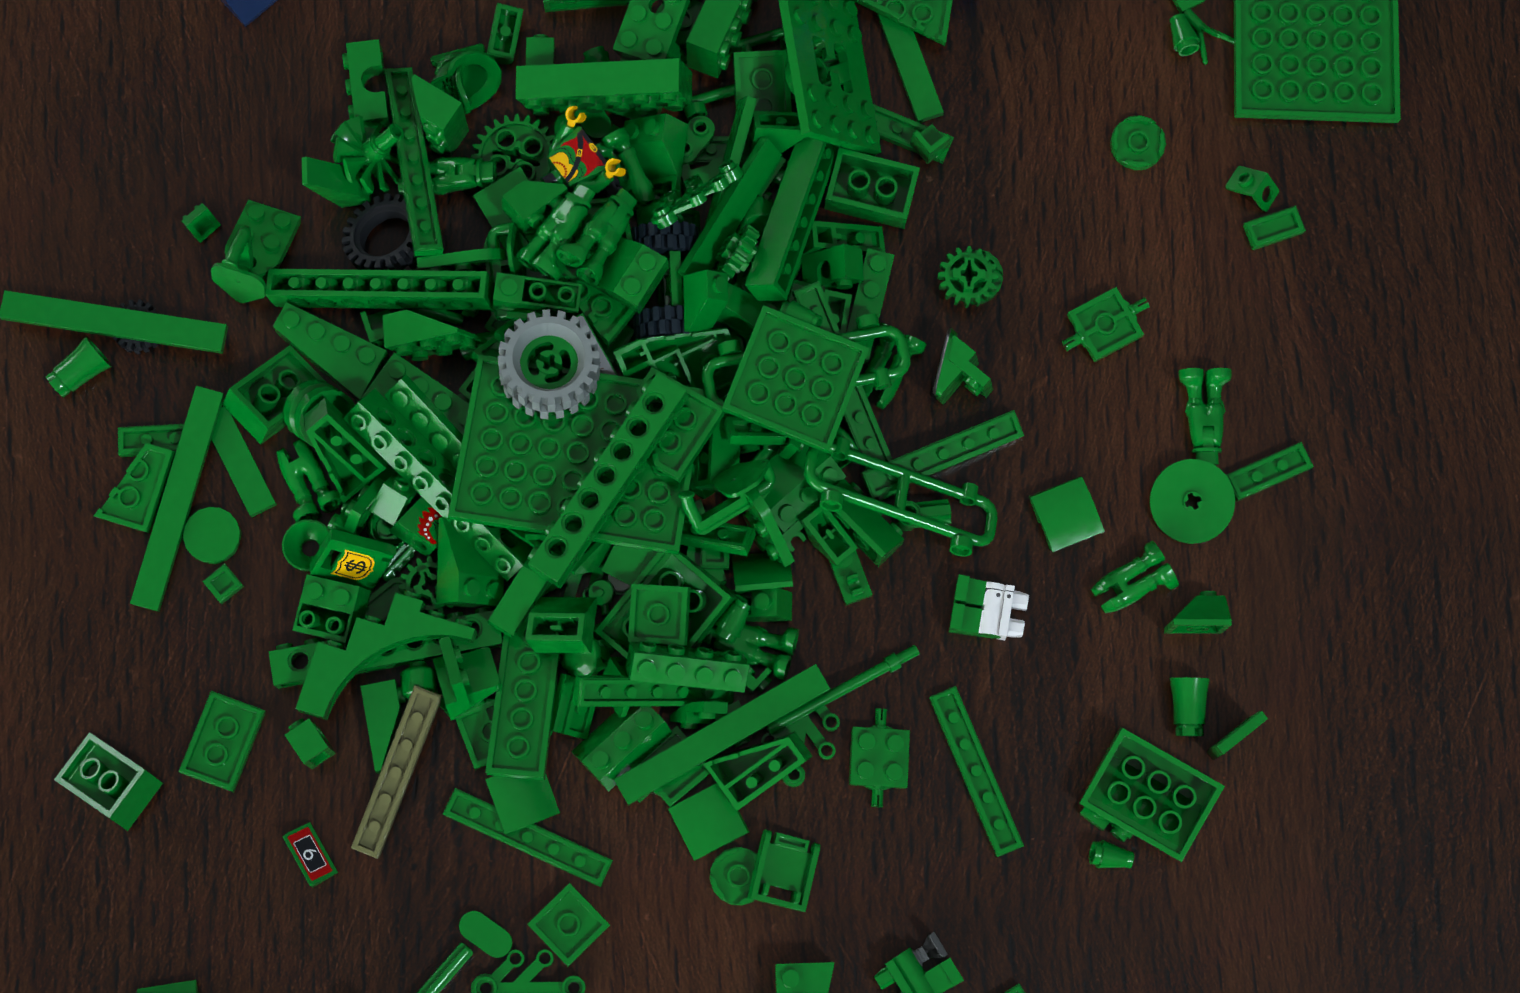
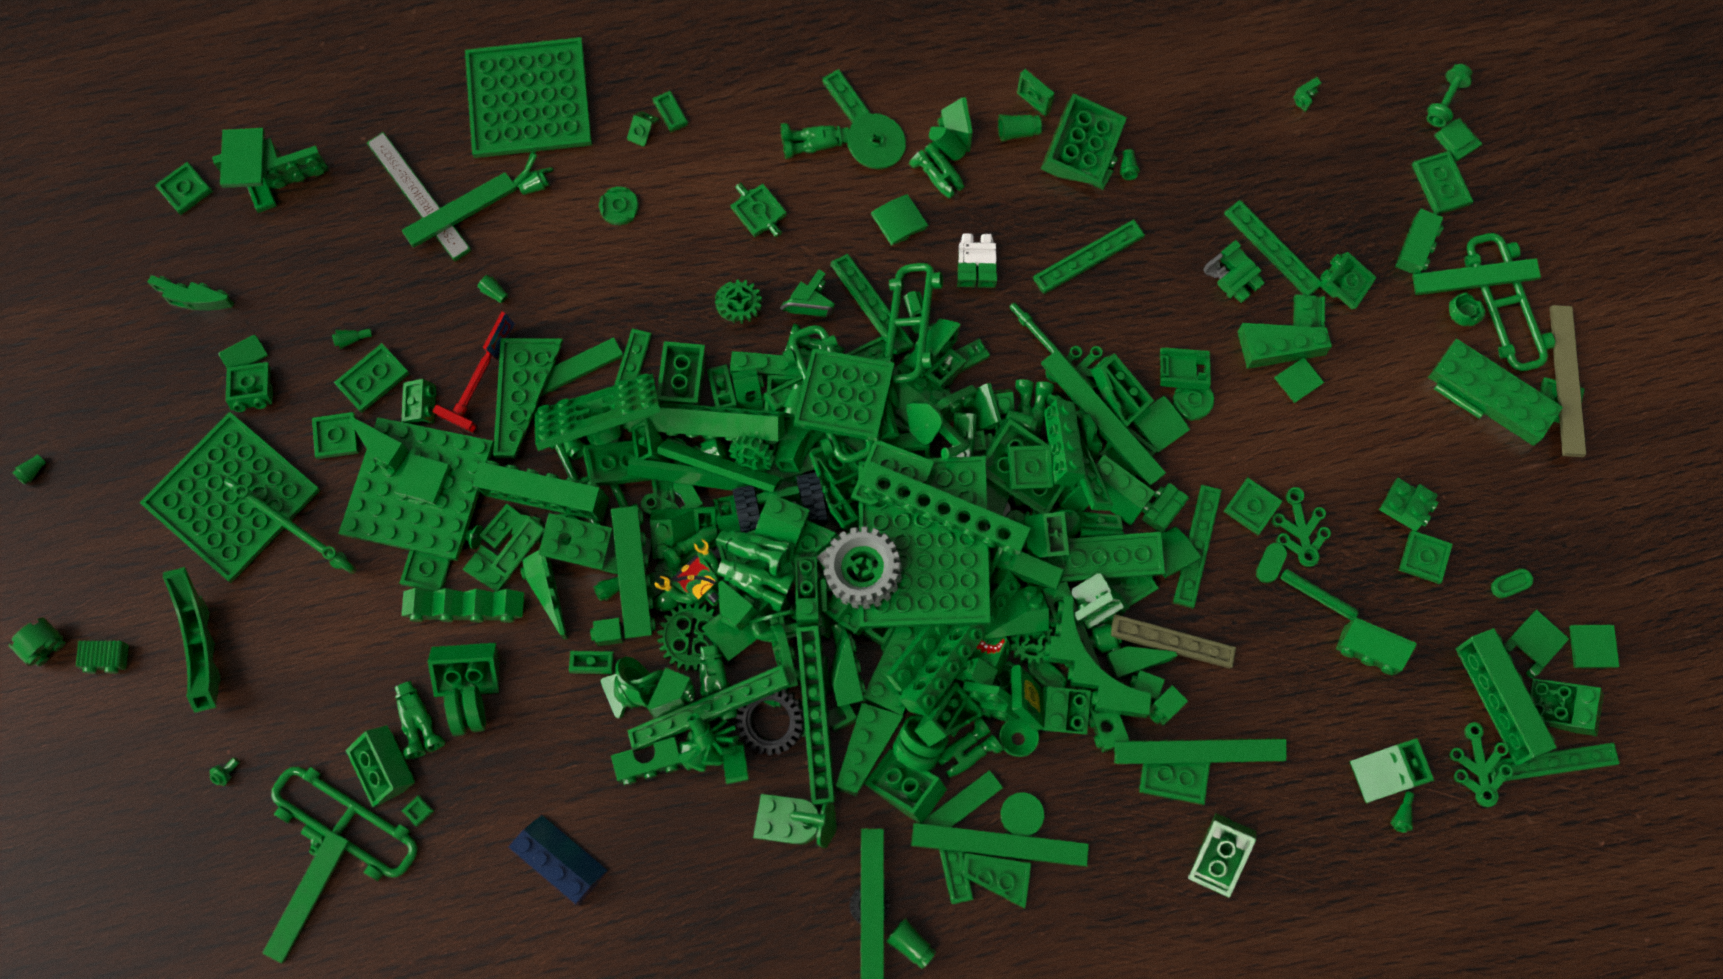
camera: 95 degrees left, 5 degrees down
(200, 222) = (778, 871): green tile -> none
(223, 583) = (1057, 799): green tile -> none
(244, 778) = (1200, 751): none -> green tile
(310, 854) = (1242, 696): slope -> none
(344, 723) = (1147, 683): none -> green brick
(585, 800) = (1165, 507): none -> green brick
(695, 194) = (732, 502): green plant -> none
(704, 299) = (792, 468): green slope -> none
(879, 757) = (1092, 319): green plate -> none
(930, 143) = (641, 340): green panel -> none
(1170, 593) = (947, 142): none -> green brick

